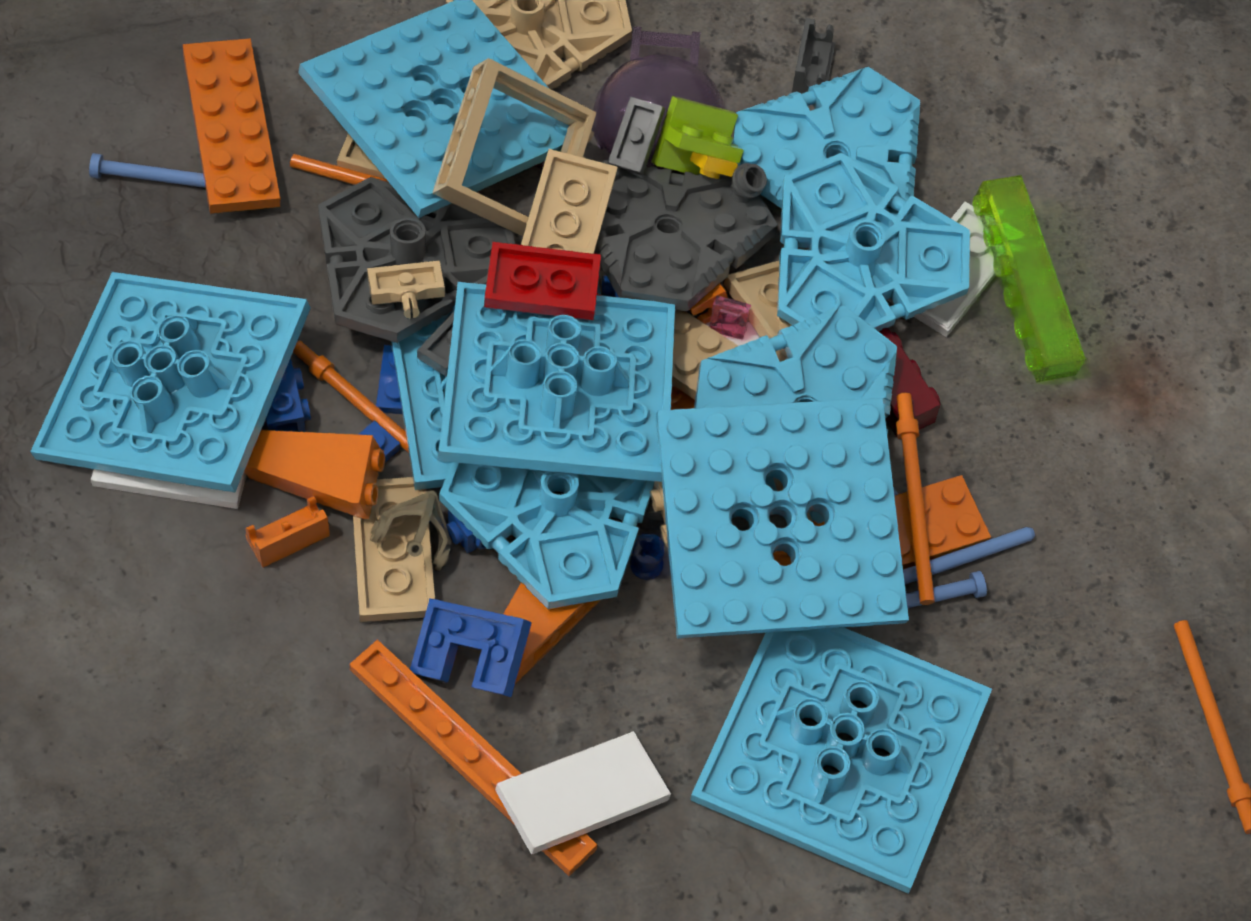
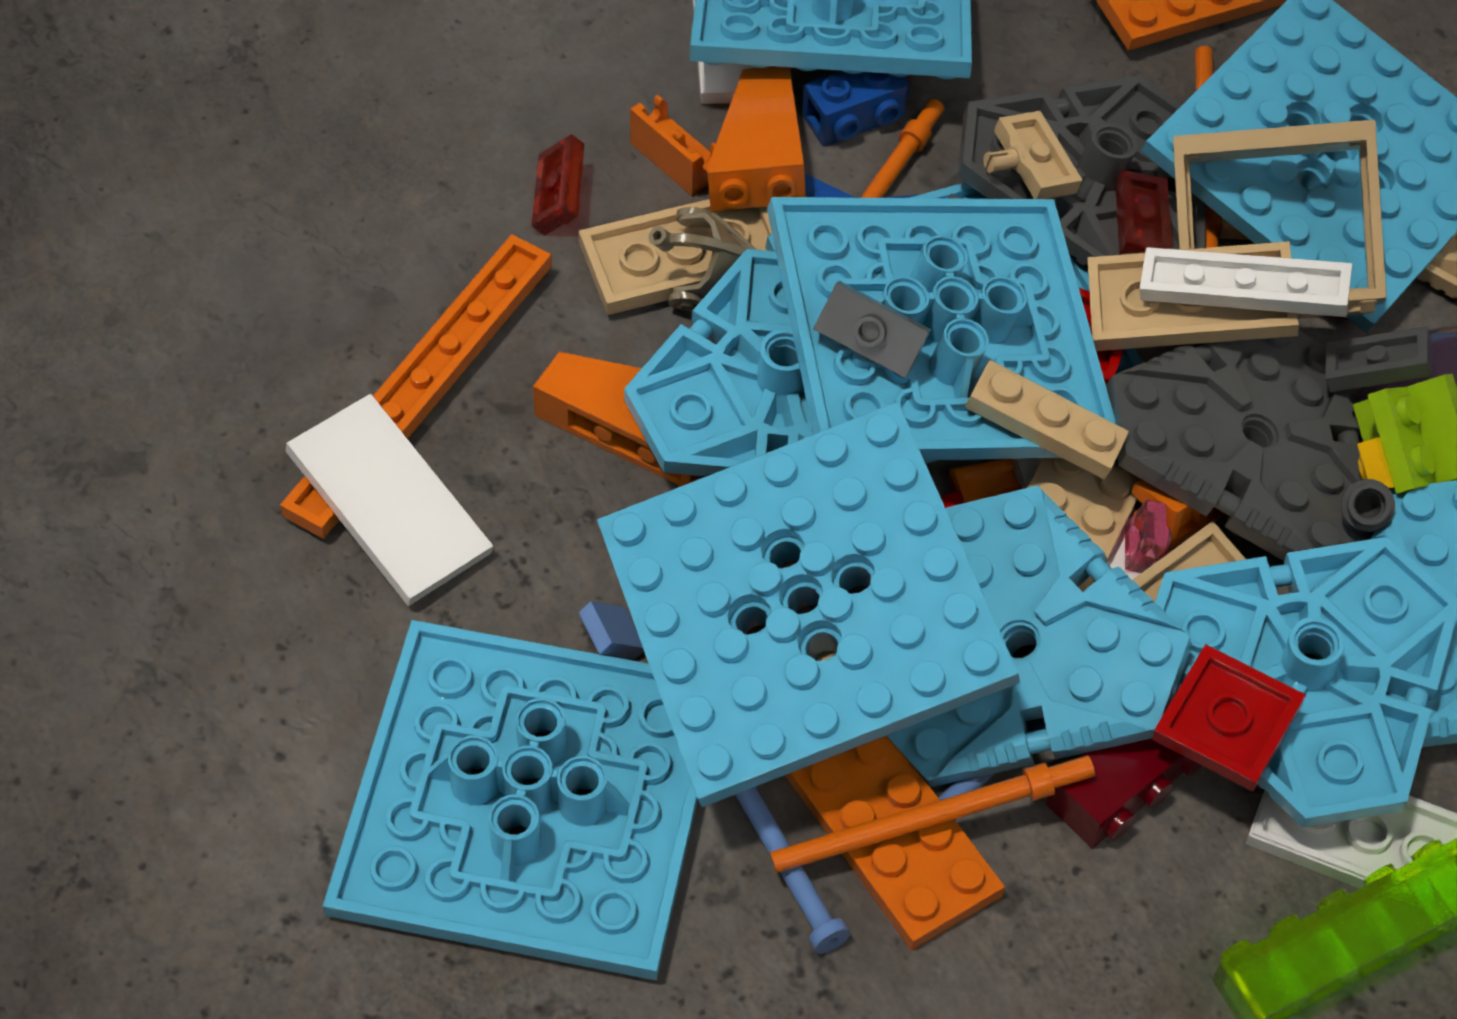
camera: 80 degrees right, 5 degrees down
(305, 622) = (558, 185): none -> clear red plate
(468, 234) = (1142, 212): none -> clear red plate
(495, 634) = (562, 334): blue plate -> none
(542, 280) = (1083, 277): red plate -> none
(580, 184) = (1246, 281): none -> white plate
(580, 414) = (872, 329): none -> dark grey plate
(657, 336) = (1047, 419): none -> tan plate
(725, 665) = (611, 630): none -> medium blue tile
(900, 303) = (1229, 717): none -> red plate
(973, 552) = (791, 806): medium blue bar -> none

